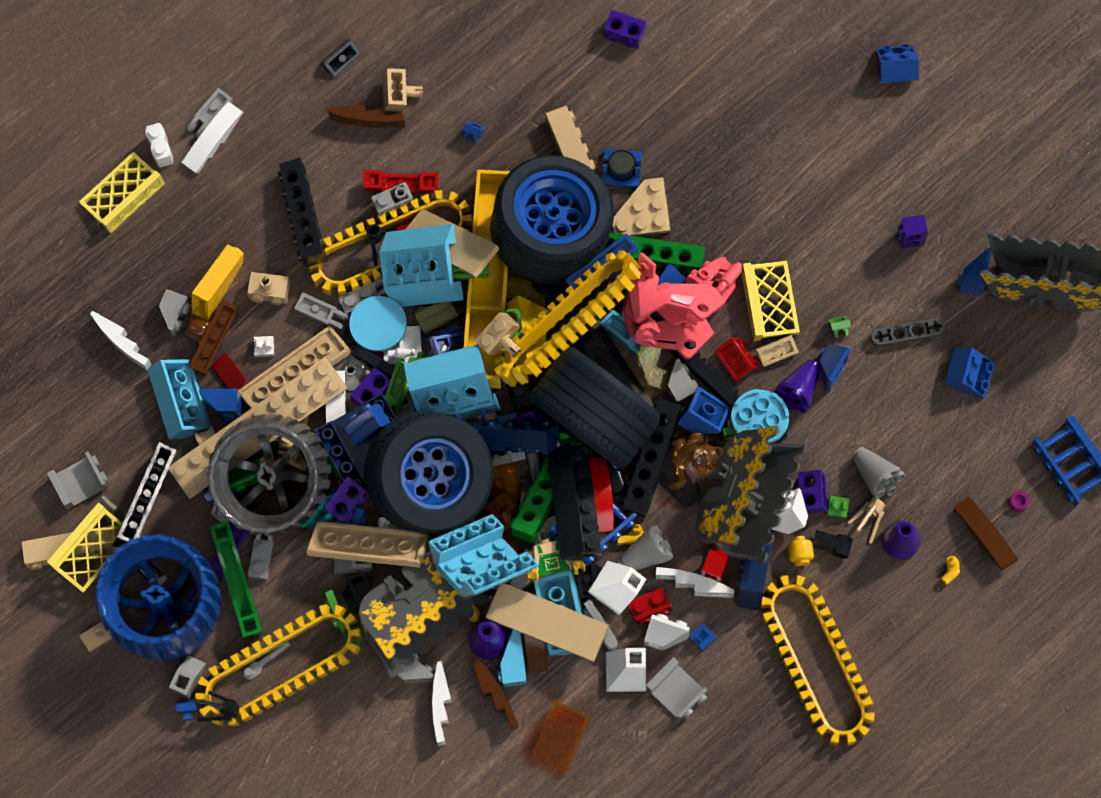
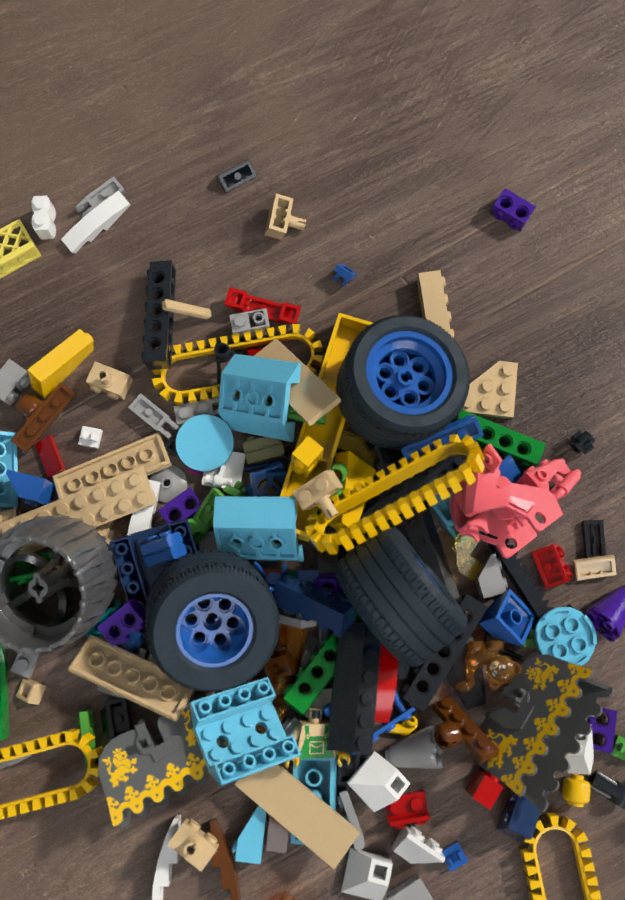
camera: 10 degrees right, 5 degrees up
(271, 590) = (30, 691): none -> tan slope
(327, 201) = (186, 309): none -> tan axle
(359, 116) = (240, 235): reddish brown slope -> none
(372, 360) = (190, 479): black beam -> none
(416, 672) = (153, 823): light grey slope -> none
(461, 674) = (194, 844): none -> tan brick
(480, 307) = (306, 457): none -> yellow brick
(489, 645) = (232, 795): dark purple cone -> none
(621, 167) = (479, 343): piece -> none
(674, 516) = (460, 729): none -> reddish brown plate
(703, 585) = (464, 801): white slope -> none
(740, 238) = (582, 442): none -> black gear
(753, 300) = (580, 513): light yellow fence -> none

